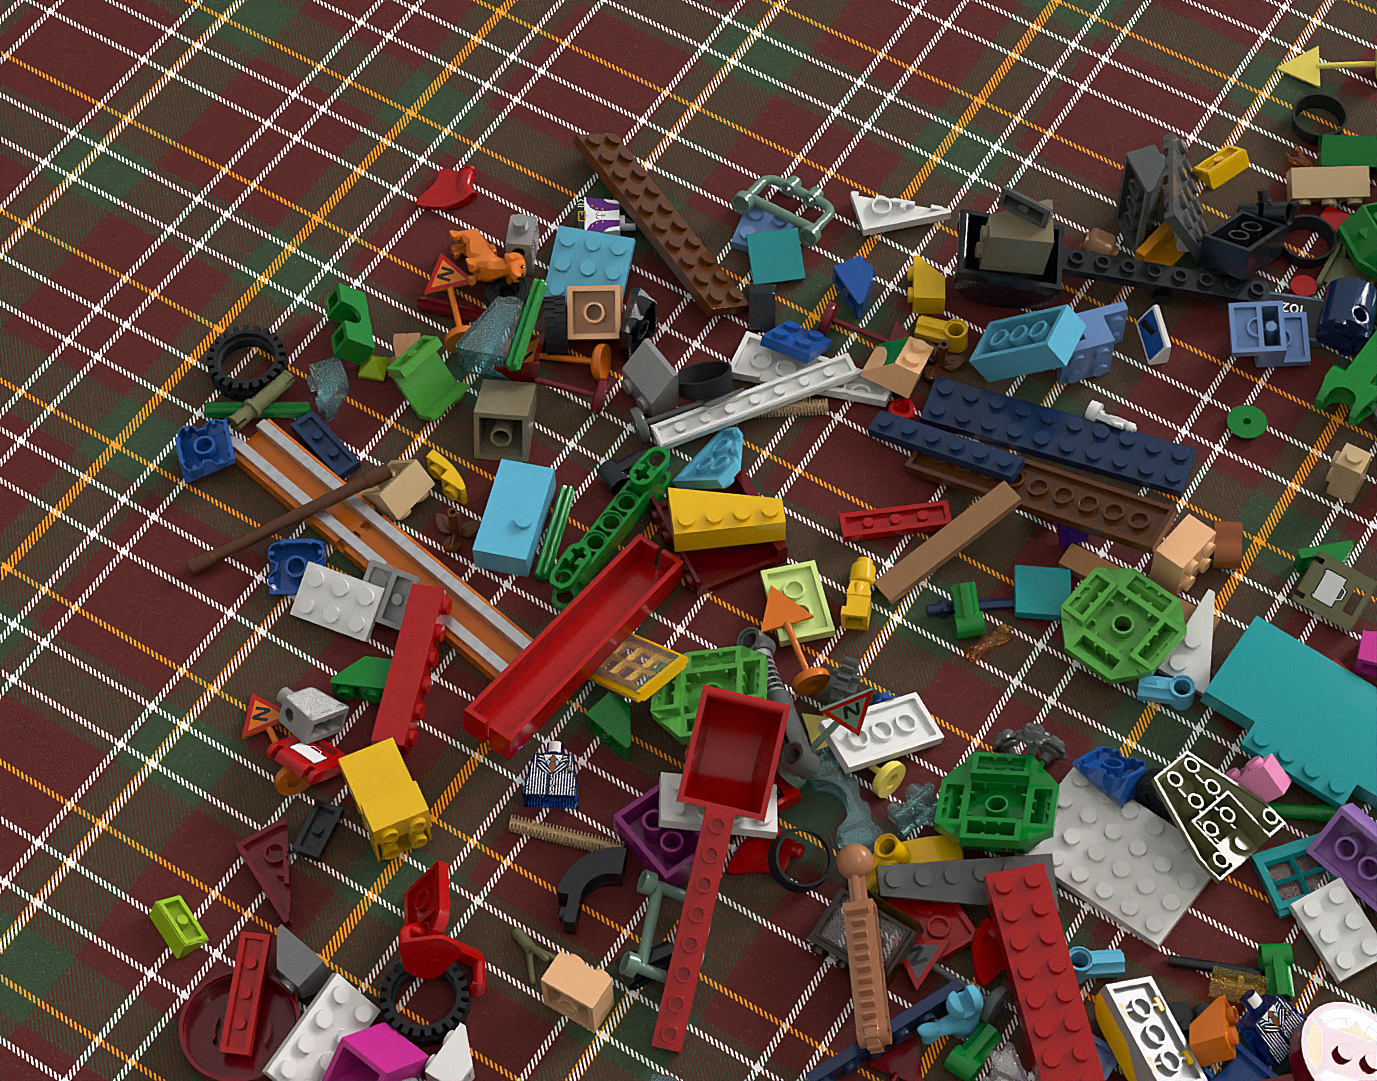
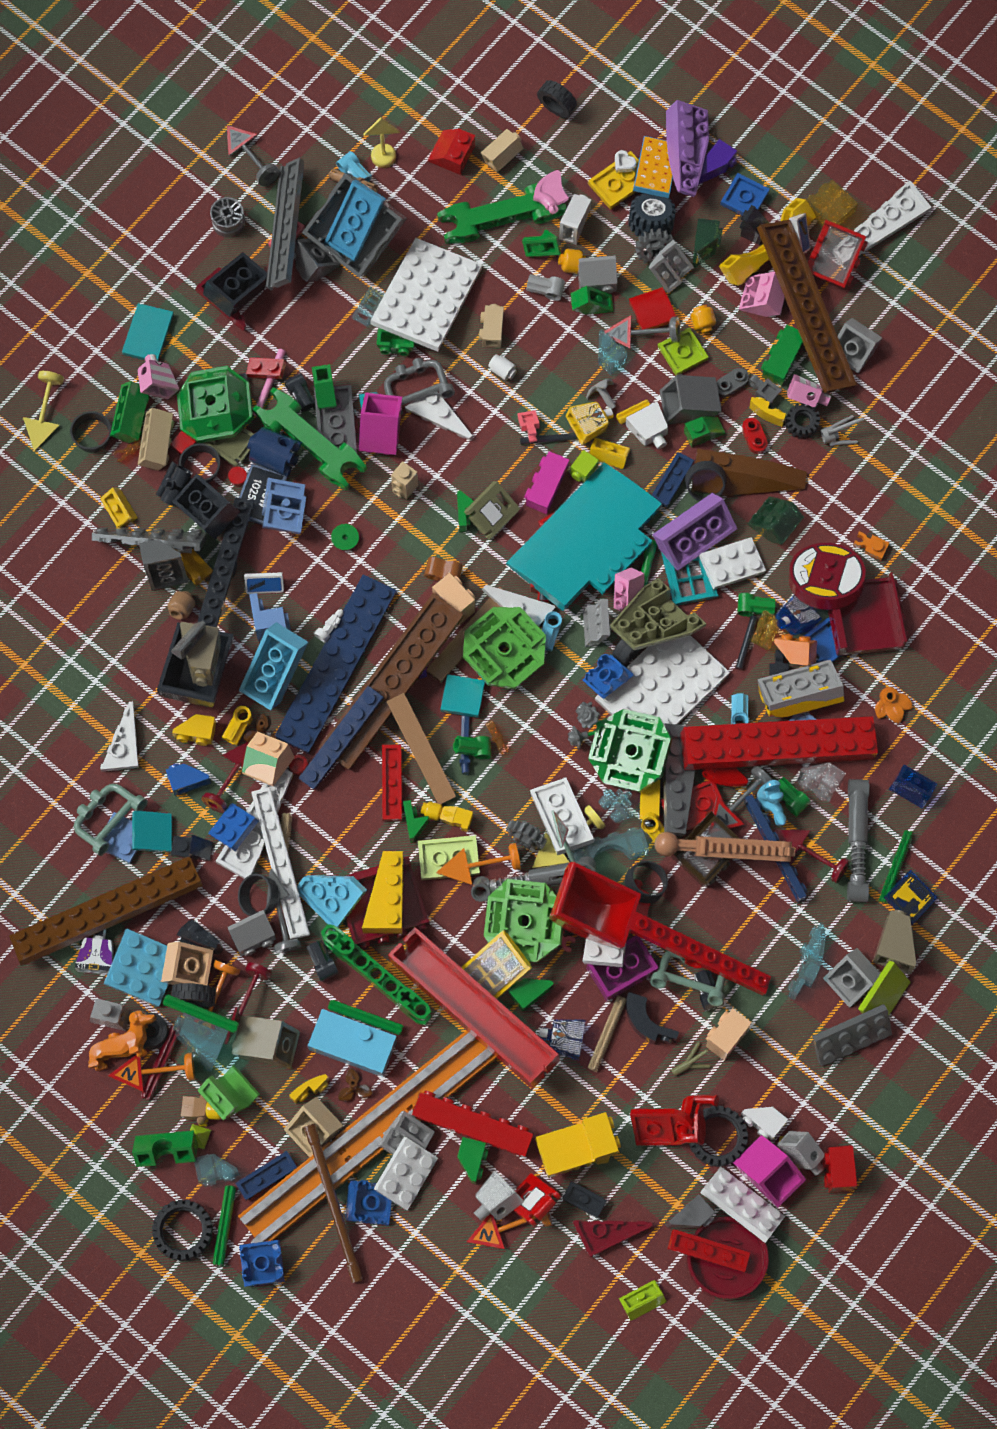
camera: 85 degrees left, 15 degrees up
(253, 407) = (230, 1226): olive pin -> none
(450, 190) = (40, 1065): red arm -> none
(836, 552) = (414, 825): none -> green slope
(882, 697) = (532, 812): blue plant -> none
(1191, 742) = (596, 623): none -> light grey slope

